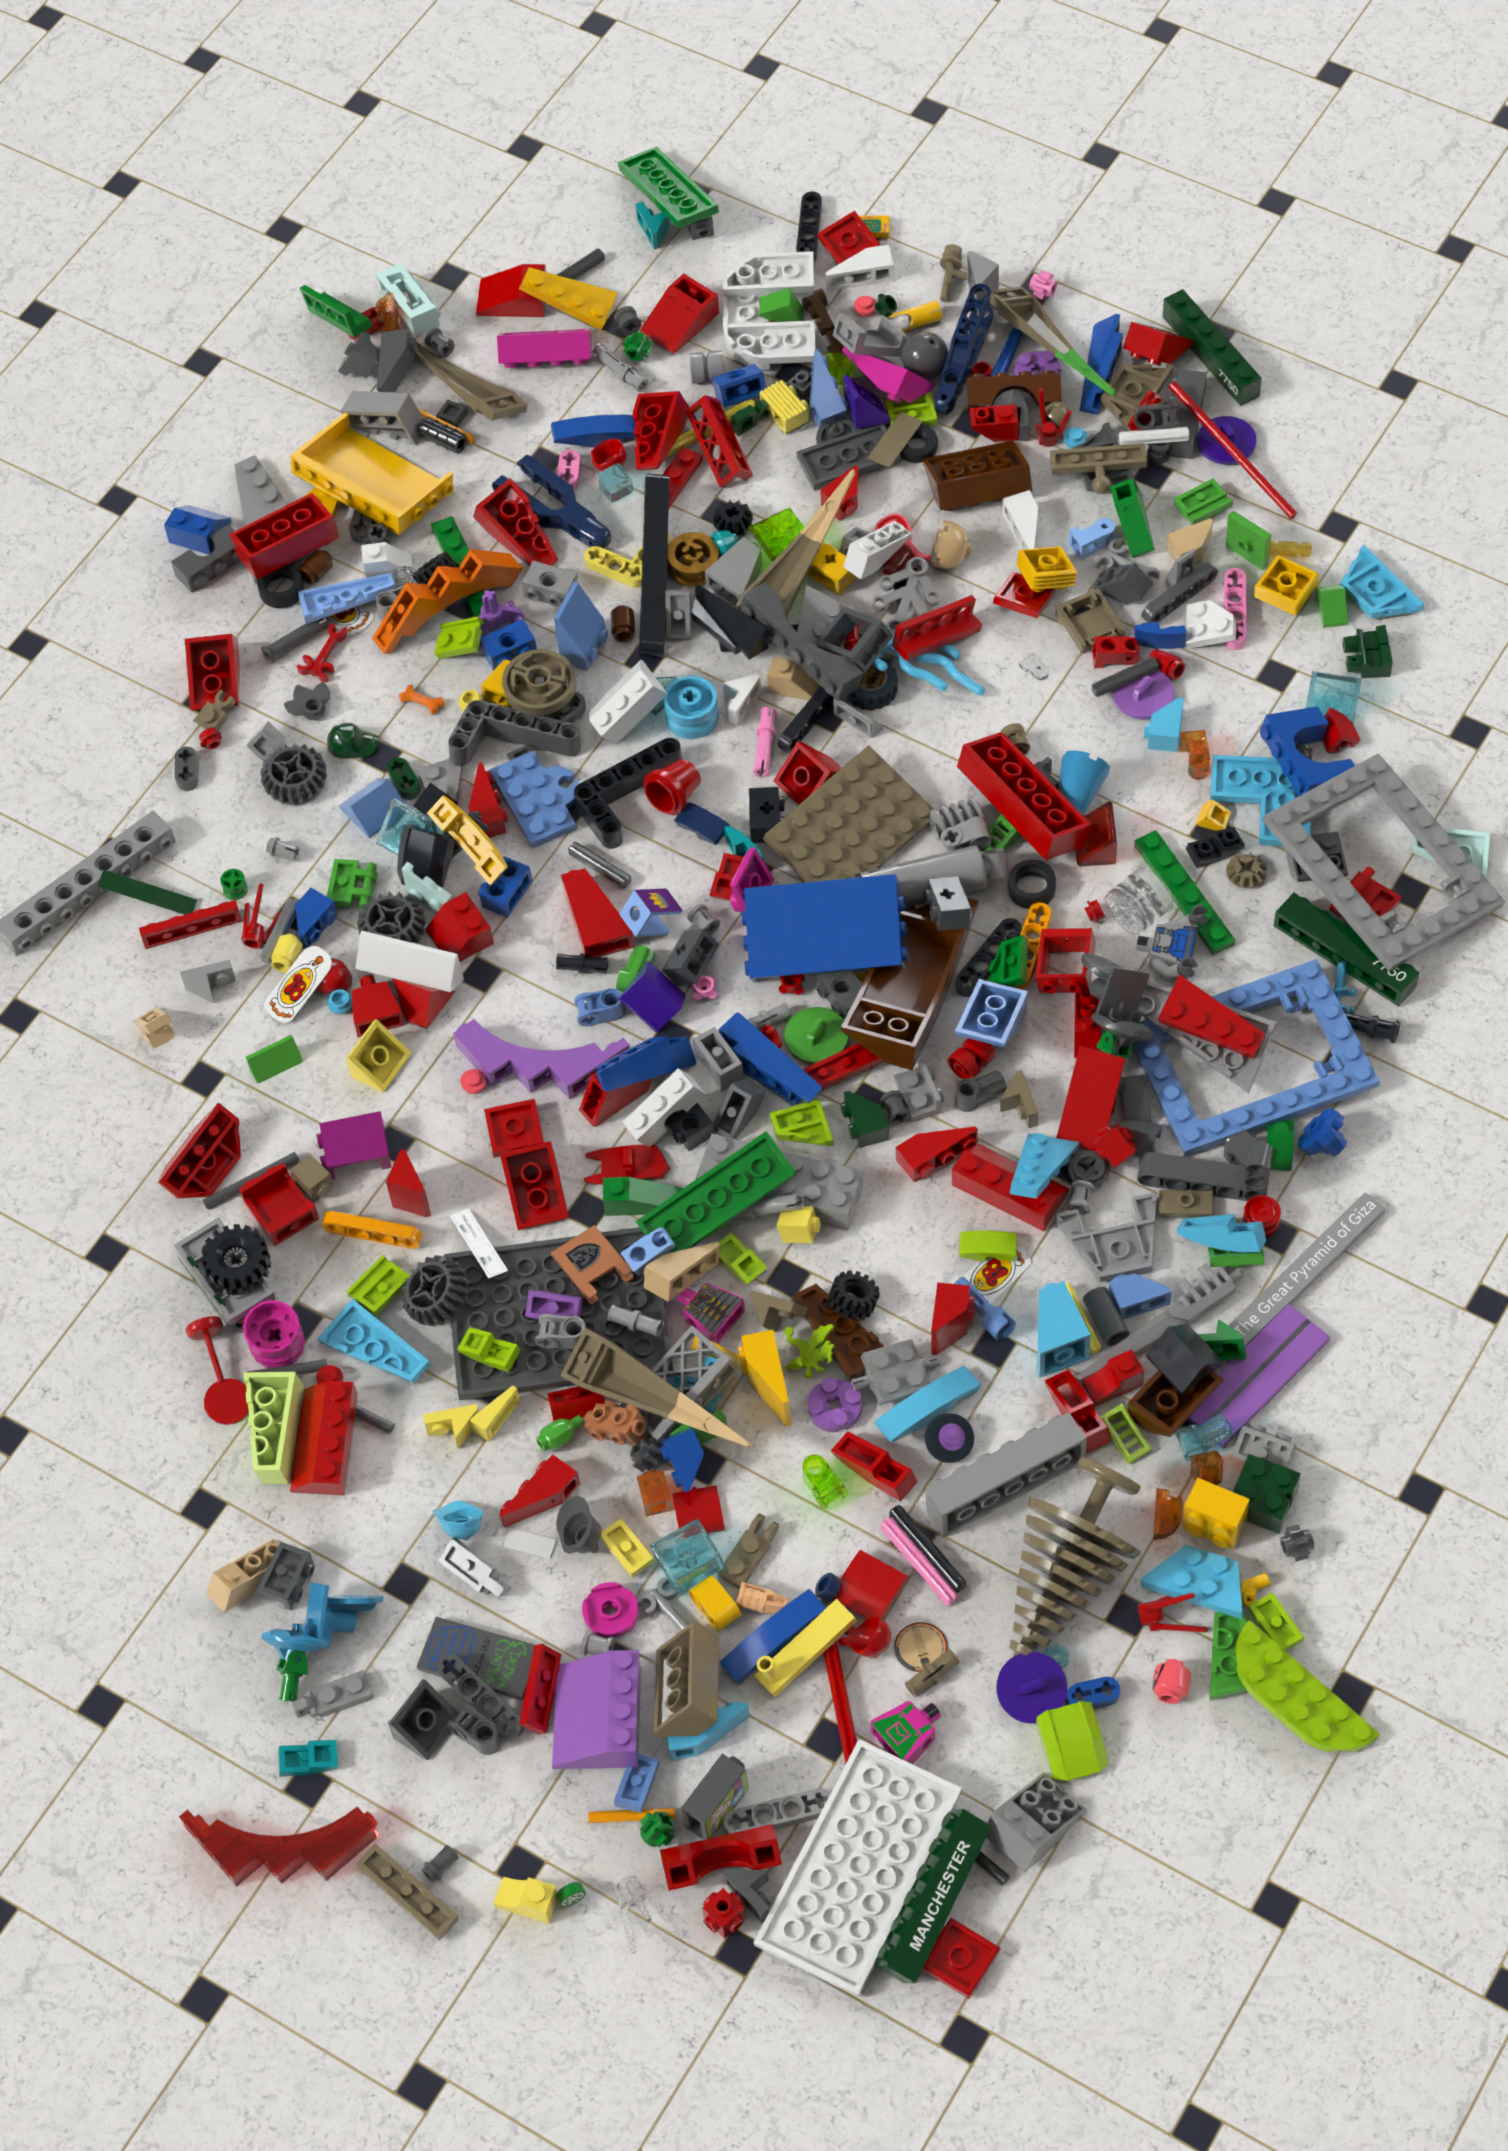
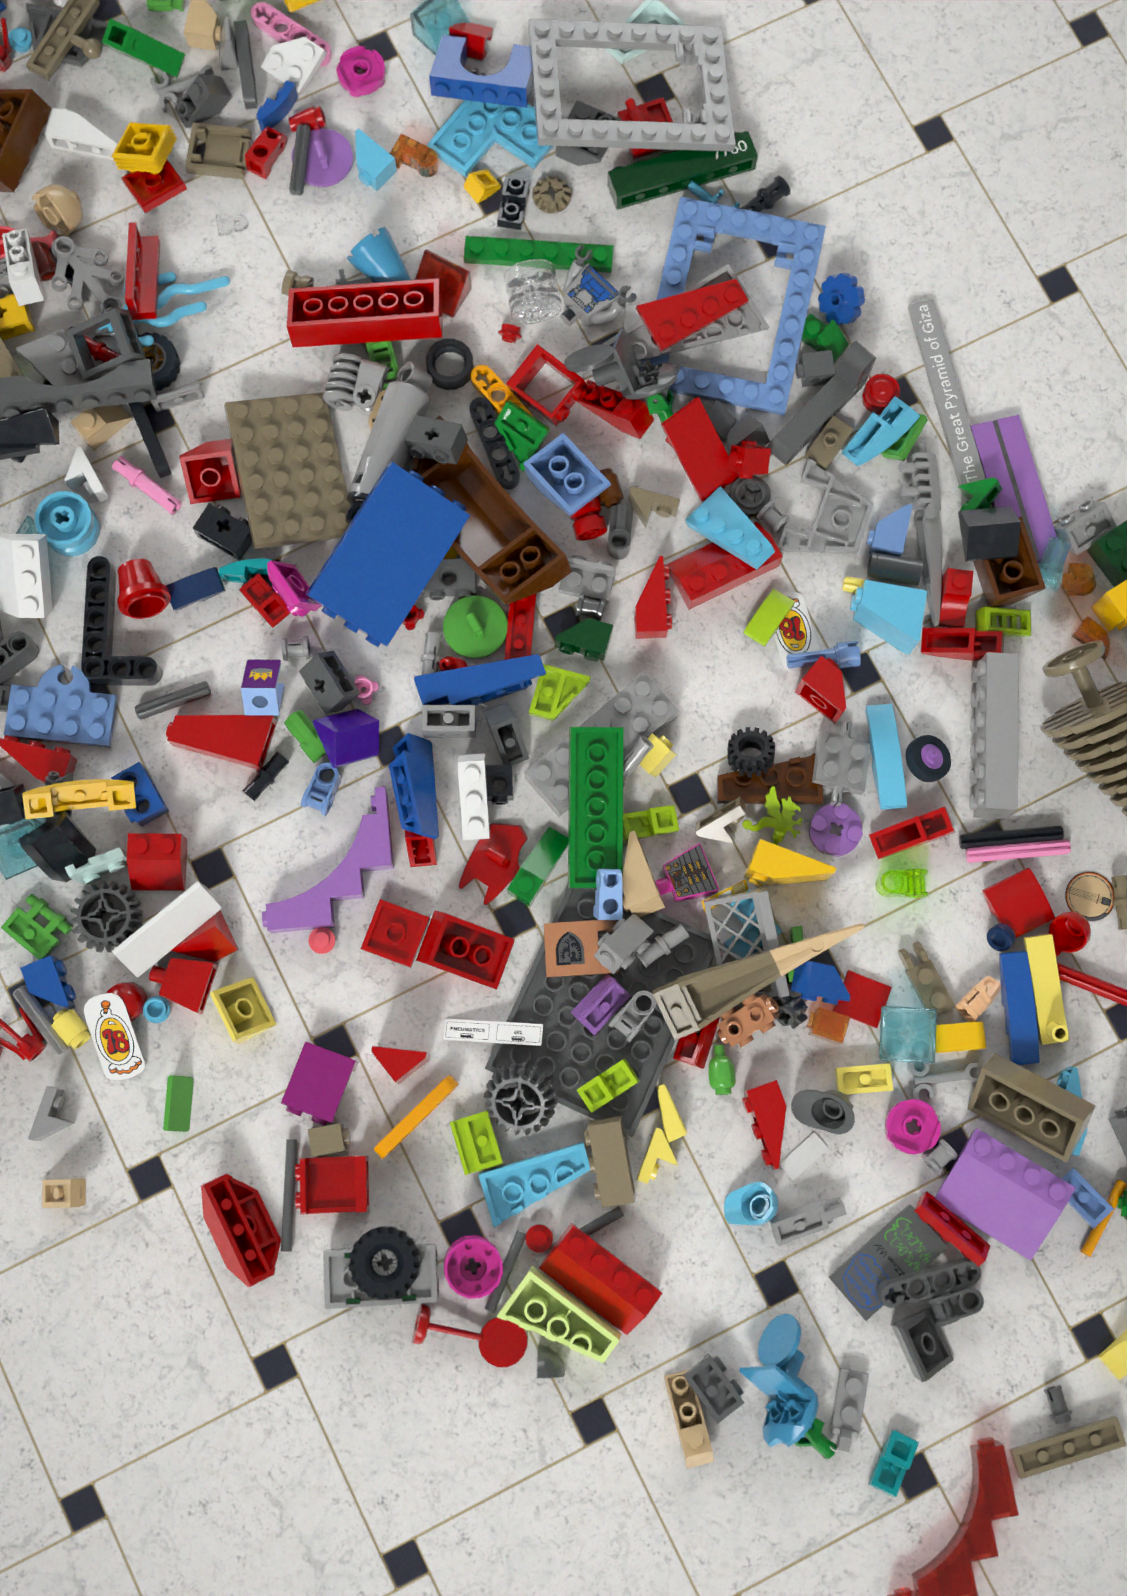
camera: 65 degrees left, 20 degrees up
(229, 1437) = (549, 1363): none -> dark grey brick
(426, 1387) = (610, 1161): none -> dark tan brick
(613, 1283) = (619, 947): none -> light grey brick
(1011, 1058) = (613, 494): none -> reddish brown brick
(1092, 538) = (136, 101): light blue leg -> none
(1242, 685) = (365, 83): none -> dark pink plate

